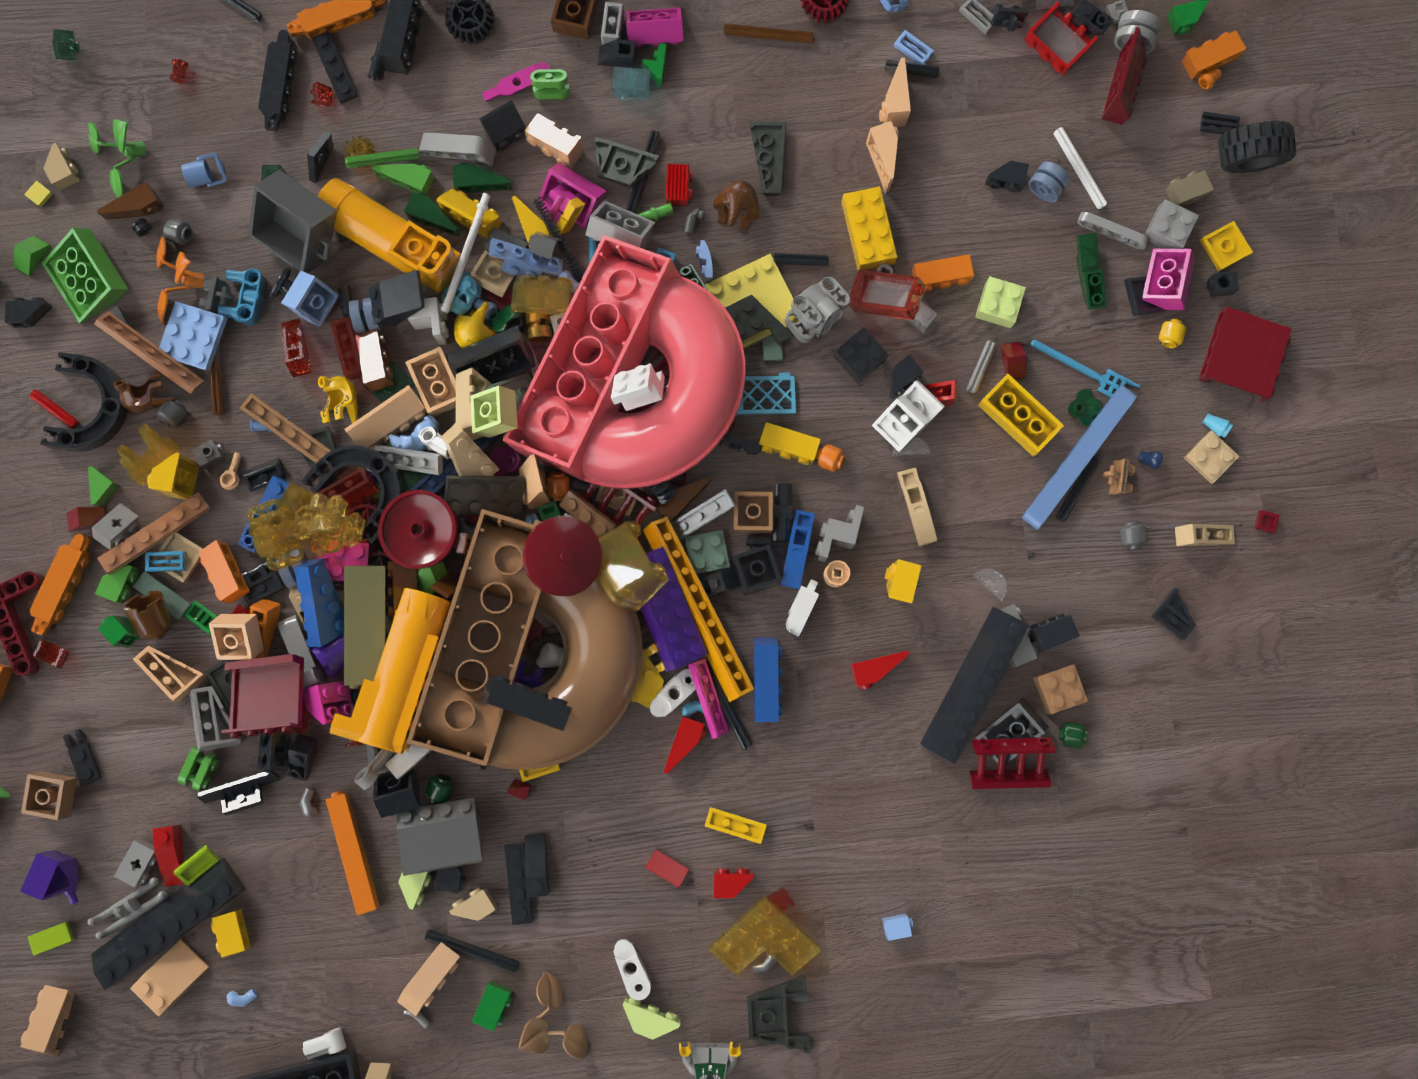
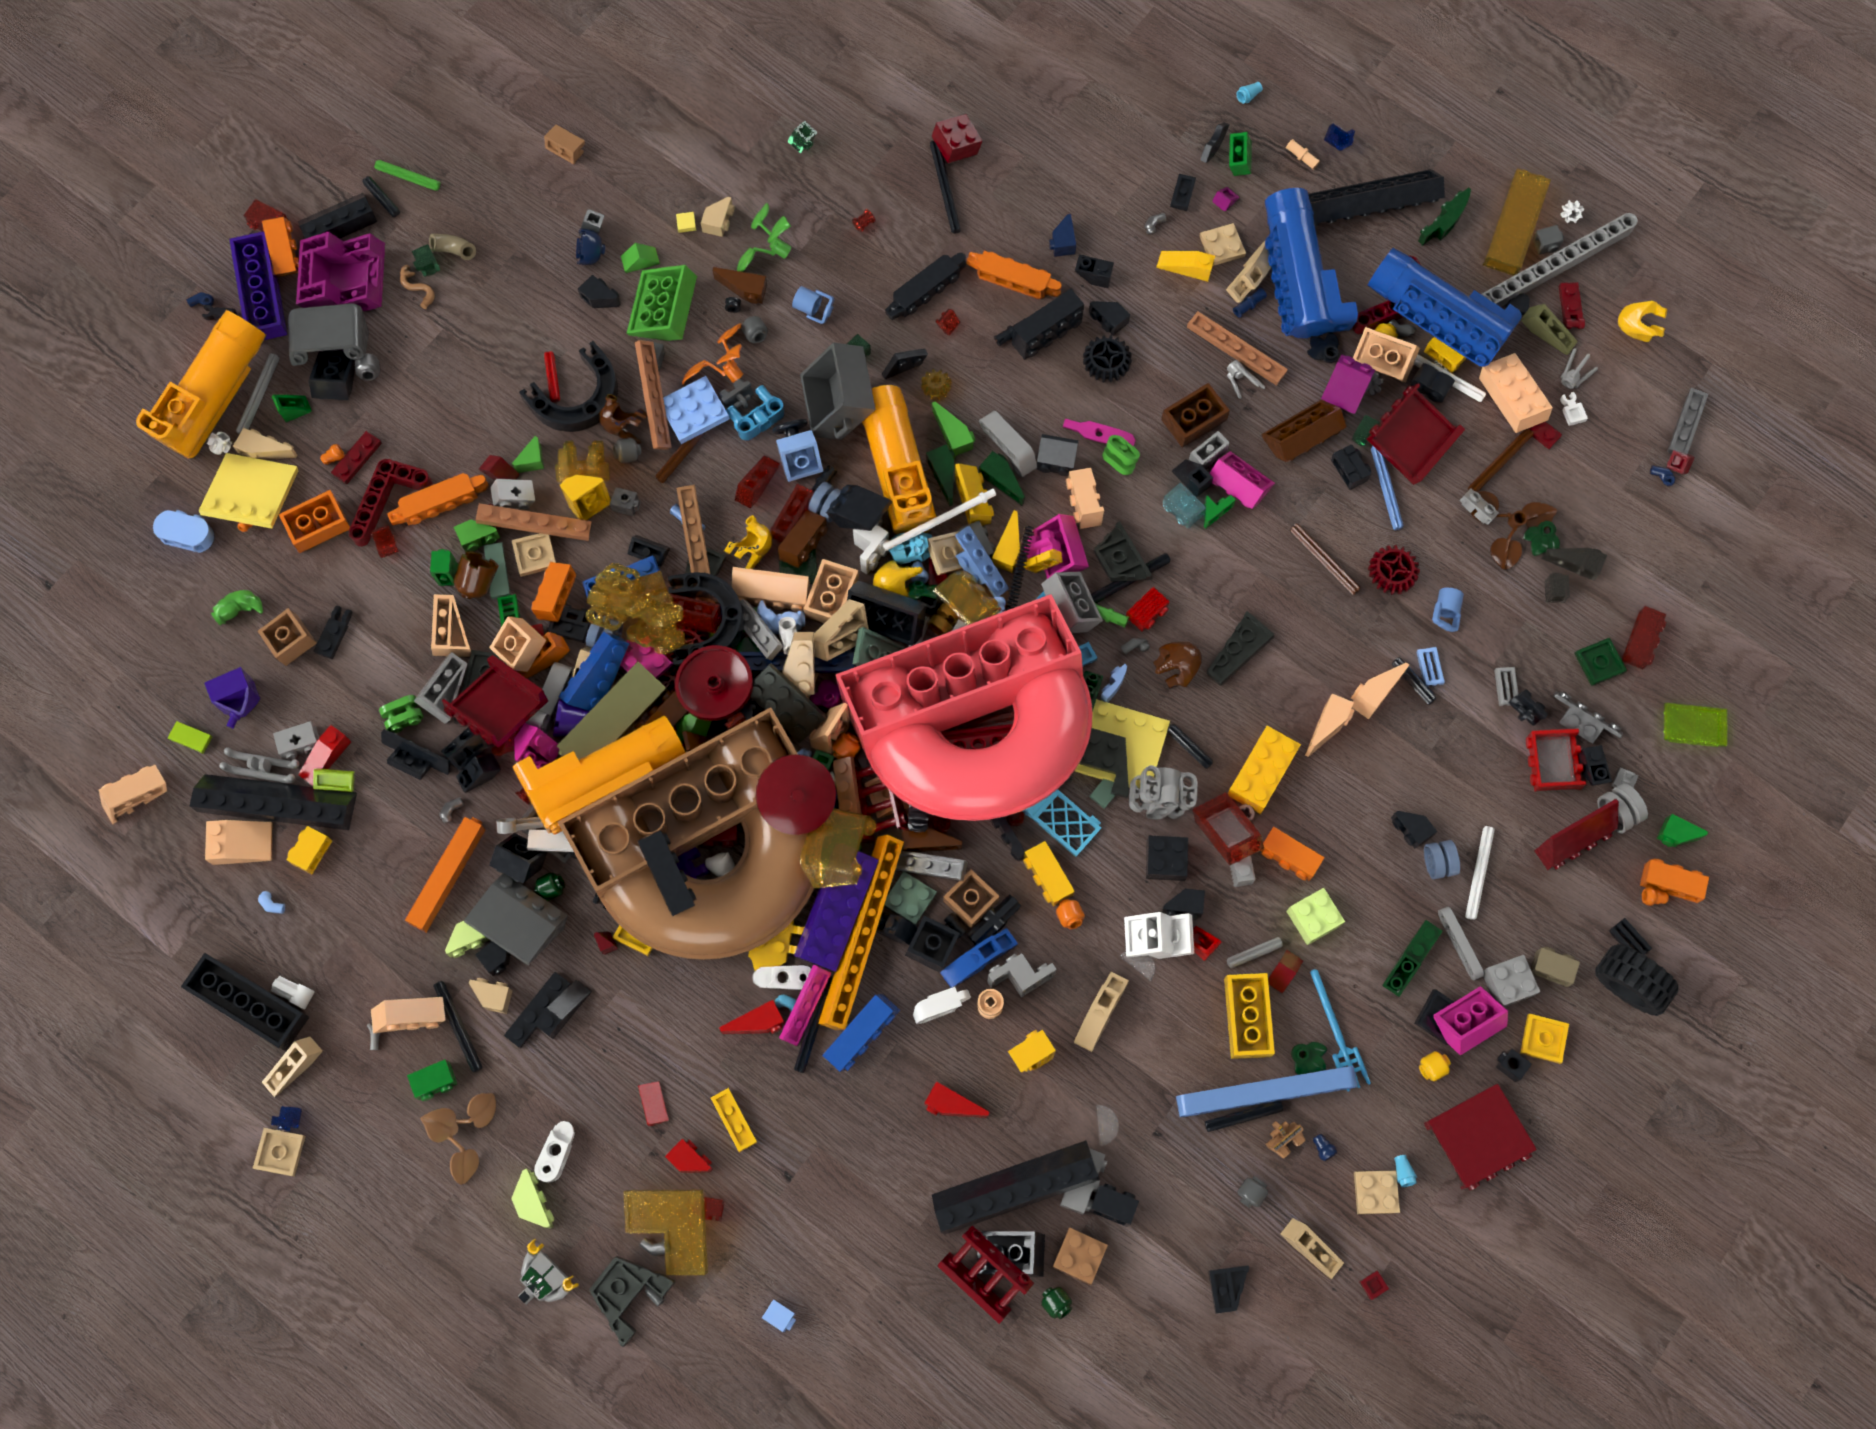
camera: 45 degrees right, 10 degrees down
(181, 561) = (533, 558): dark azure tile -> none
(229, 479) = (622, 531): light nougat plate -> none
(334, 67) = (976, 310): black plate -> none
(382, 158) = (947, 402): bright green axle -> none
(493, 411) = (848, 648): yellowish green brick -> none
(543, 244) = (1002, 564): dark grey brick -> none
(637, 387) = (967, 723): white bracket -> none

